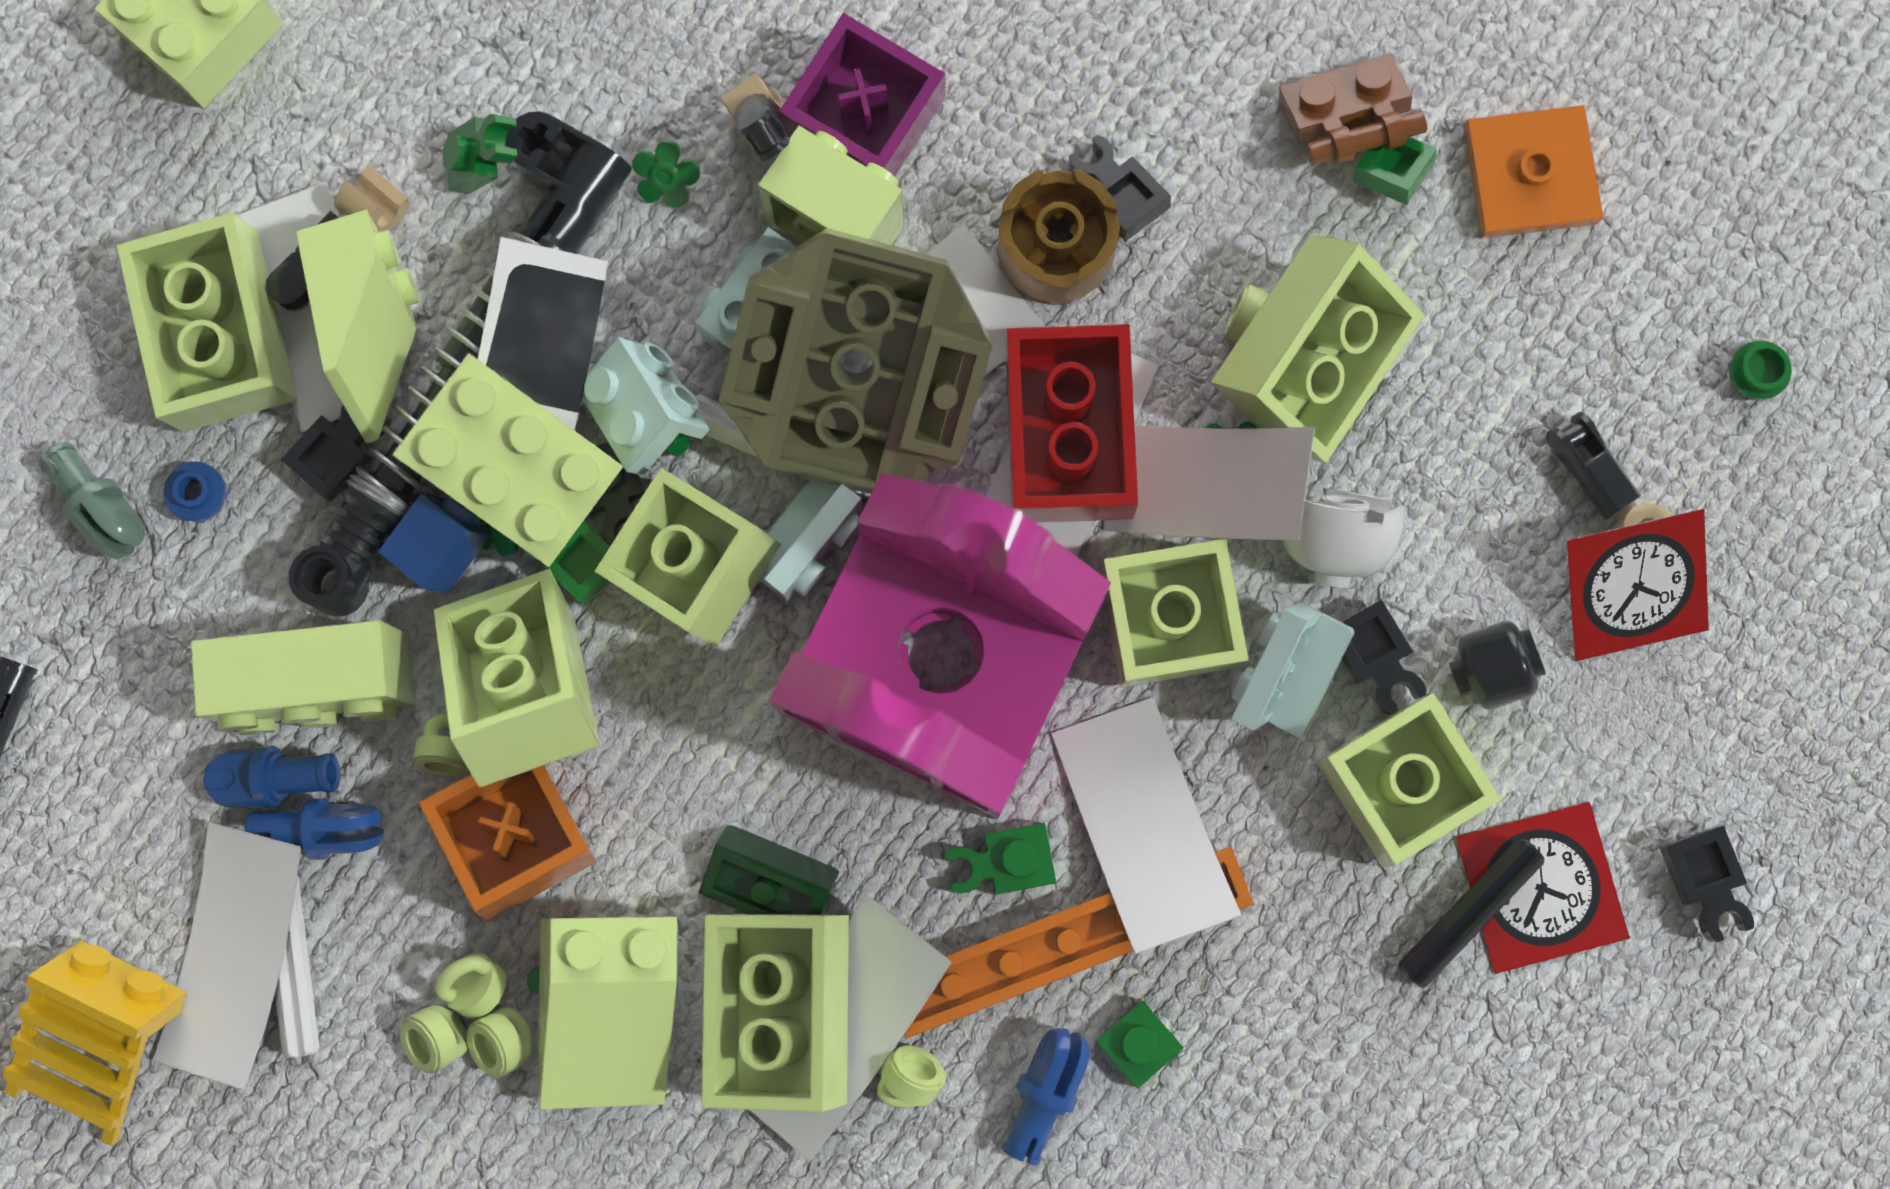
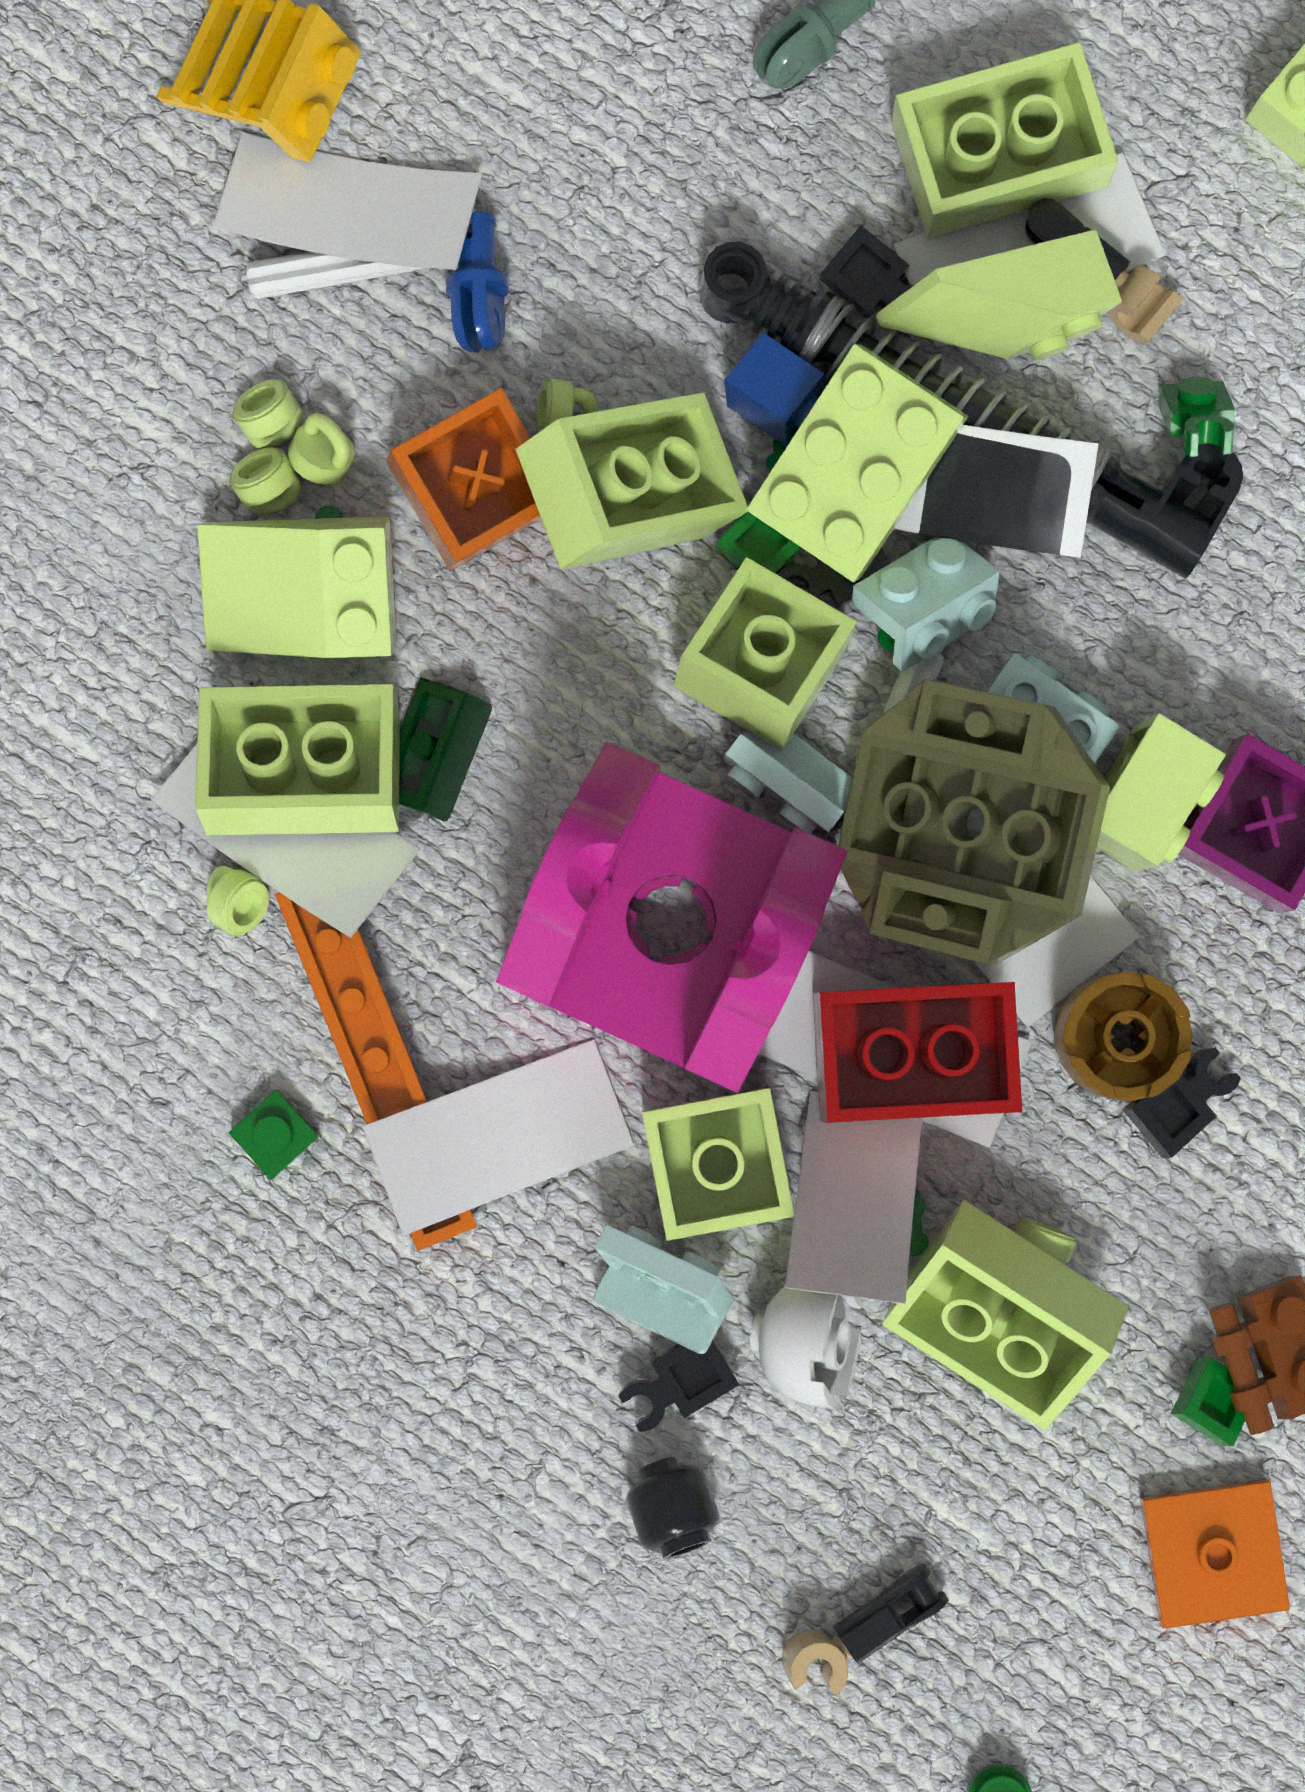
camera: 85 degrees right, 5 degrees up
(211, 496) = (826, 156): blue plate -> none
(267, 776) = (529, 229): blue arm -> none
(303, 677) = (628, 263): yellowish green brick -> none
(665, 174) = (1183, 614): green plant -> none
(757, 116) = (1240, 710): black piece -> none
(1013, 858) = (460, 1002): green plate -> none
(1047, 1092) = (223, 1039): blue arm -> none
(1408, 781) = (547, 1411): yellowish green brick -> none
(1471, 913) = (414, 1479): black axle -> none
(1564, 904) = (443, 1555): sticker -> none
(1638, 584) = (760, 1658): sticker -> none
(1706, 871) = (460, 1726): black plate -> none

